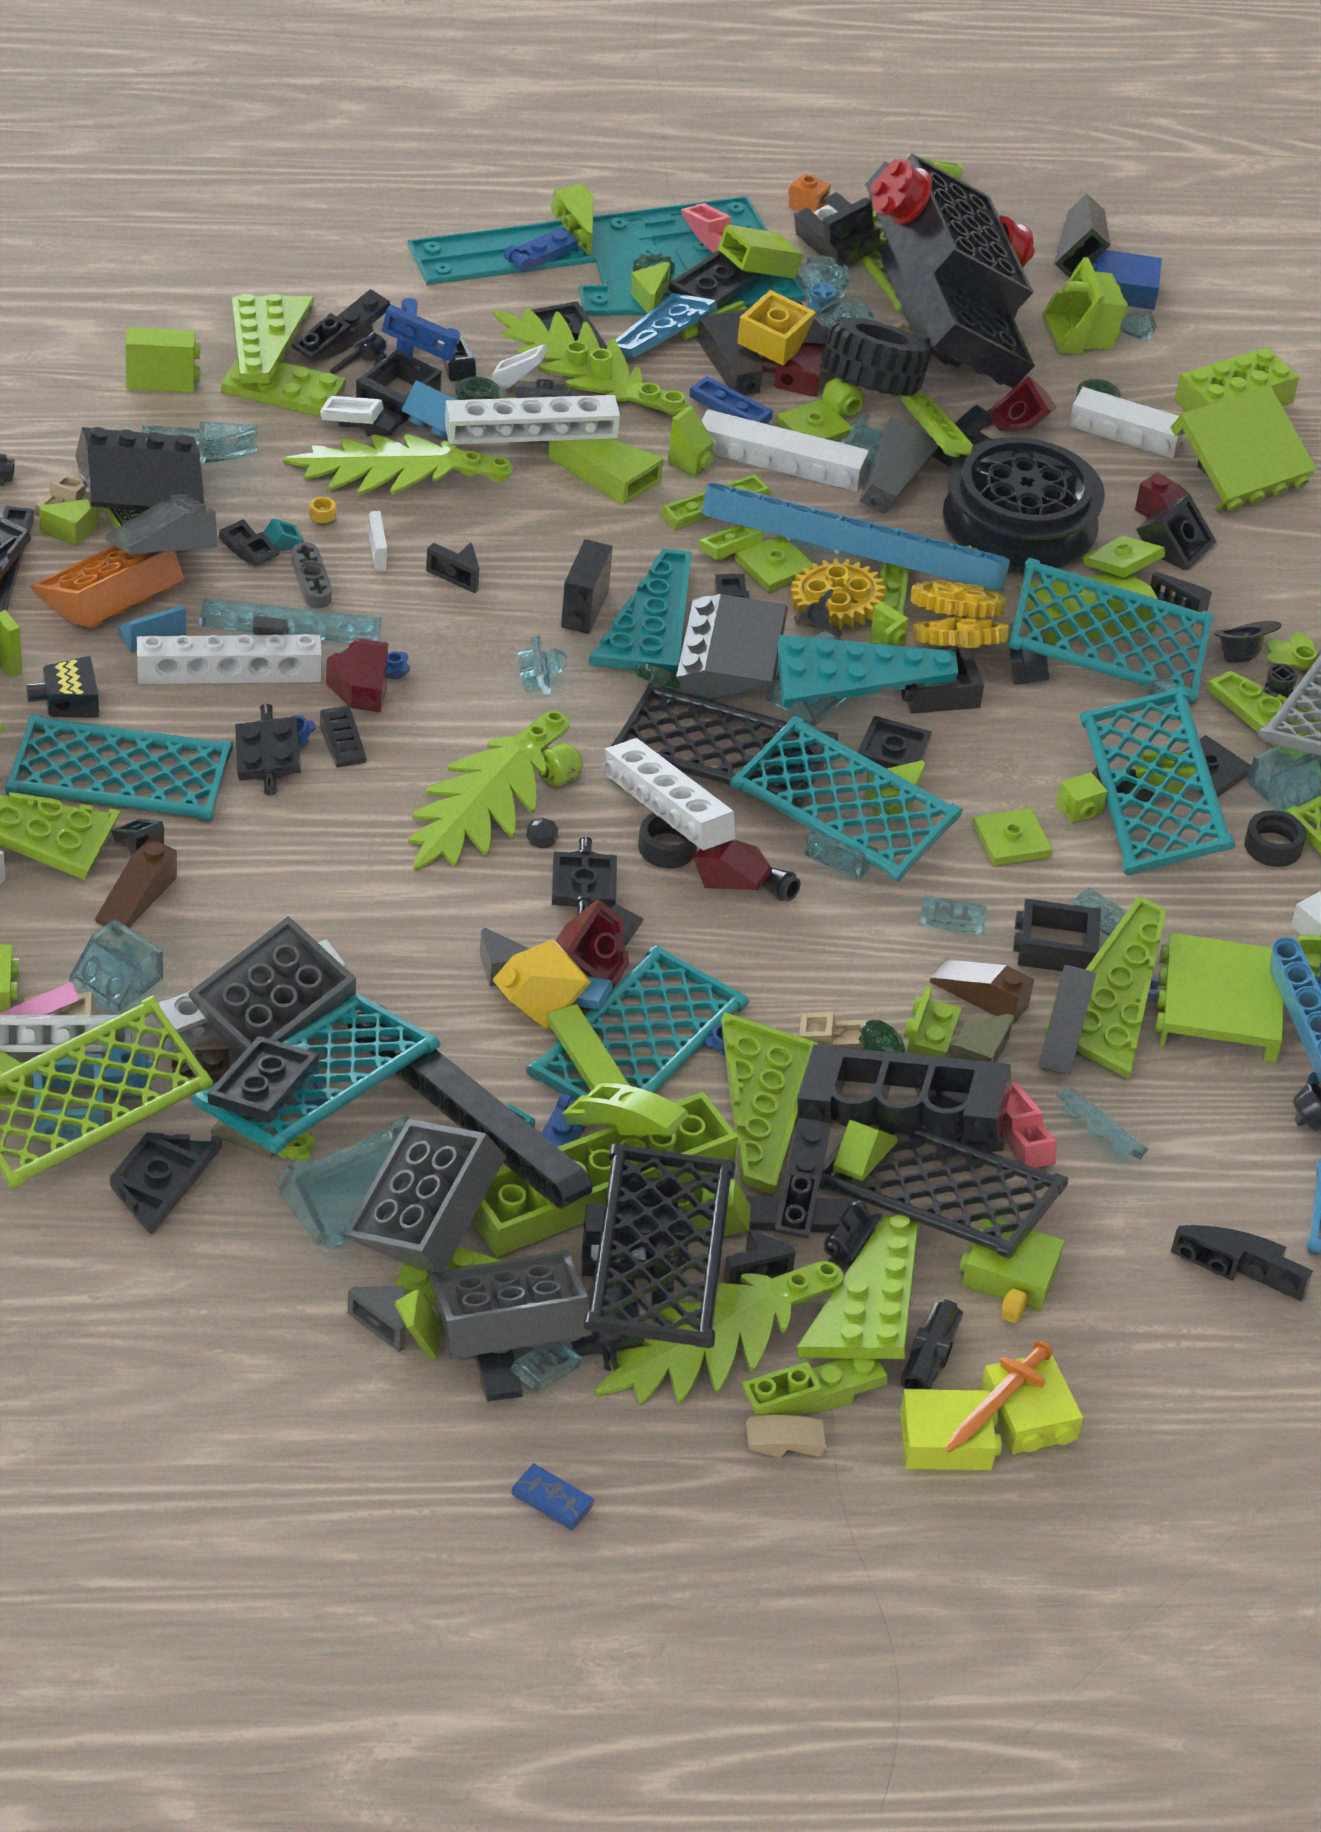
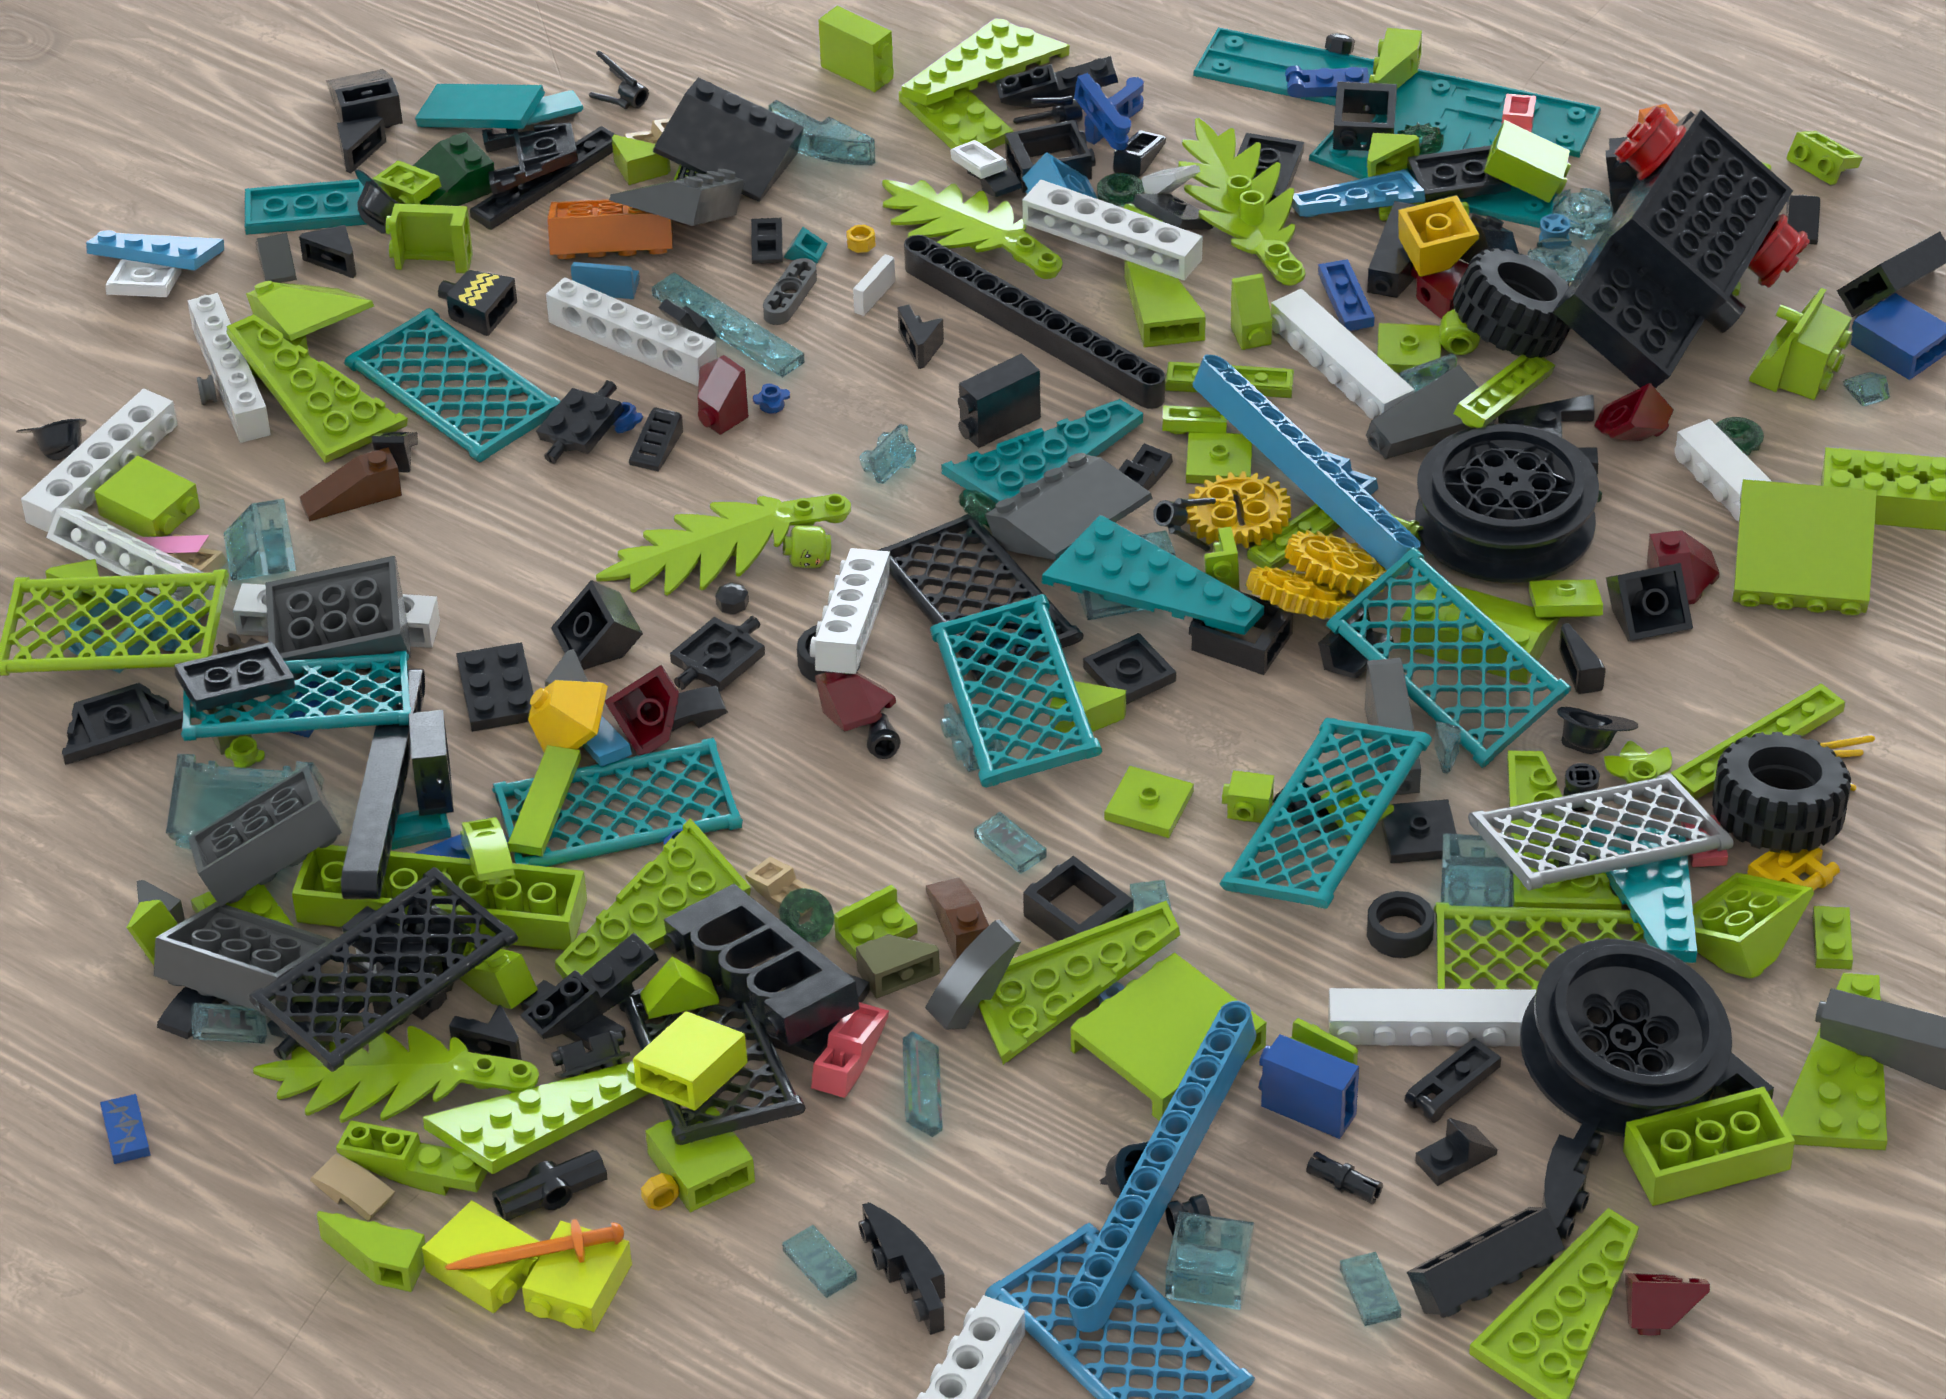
camera: 45 degrees right, 0 degrees up
(438, 990) = (495, 686): none -> black plate
(467, 1044) = (431, 762): none -> black window
(468, 904) = (597, 626): none -> black slope
(516, 218) = (1339, 43): none -> black tile
(530, 517) = (1035, 321): none -> black beam
(583, 252) = (1362, 99): none -> black window
(868, 1472) = (379, 1251): none -> lime slope
(955, 1189) = (690, 1060): none -> neon yellow brick
(1107, 682) = (1389, 707): none -> dark grey slope
(1173, 1292) = (819, 1261): none -> clear light blue tile

